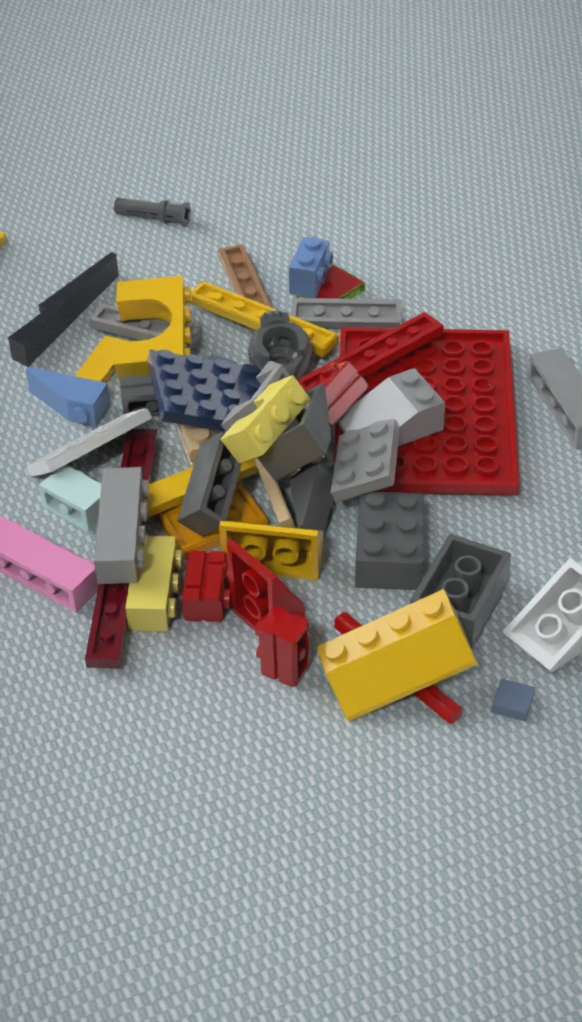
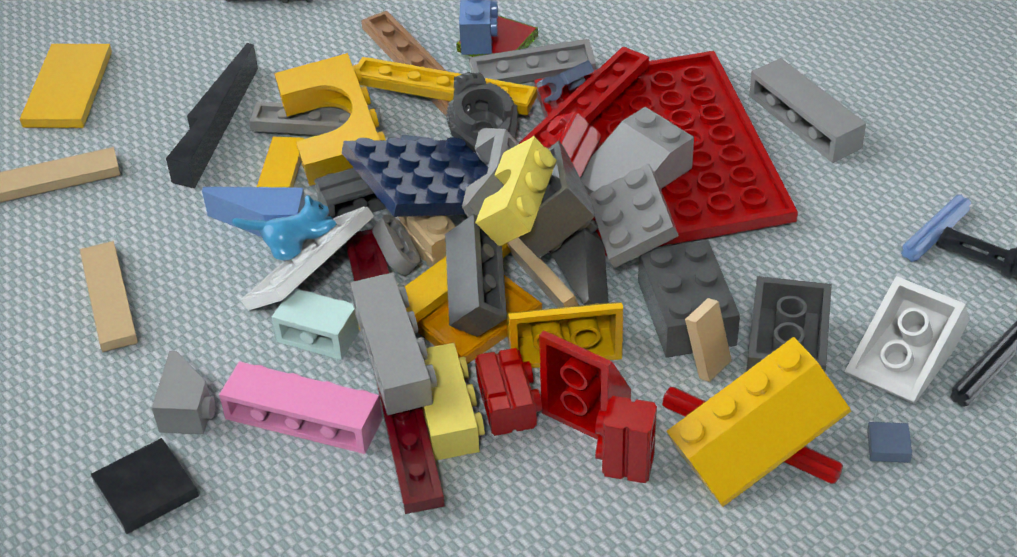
camera: 15 degrees left, 0 degrees up
(79, 419) = (288, 233): none -> dark azure animal
(166, 446) = (396, 244): none -> light grey beam
(368, 331) = (572, 78): none -> sand blue plate
(387, 578) = (708, 339): none -> tan tile

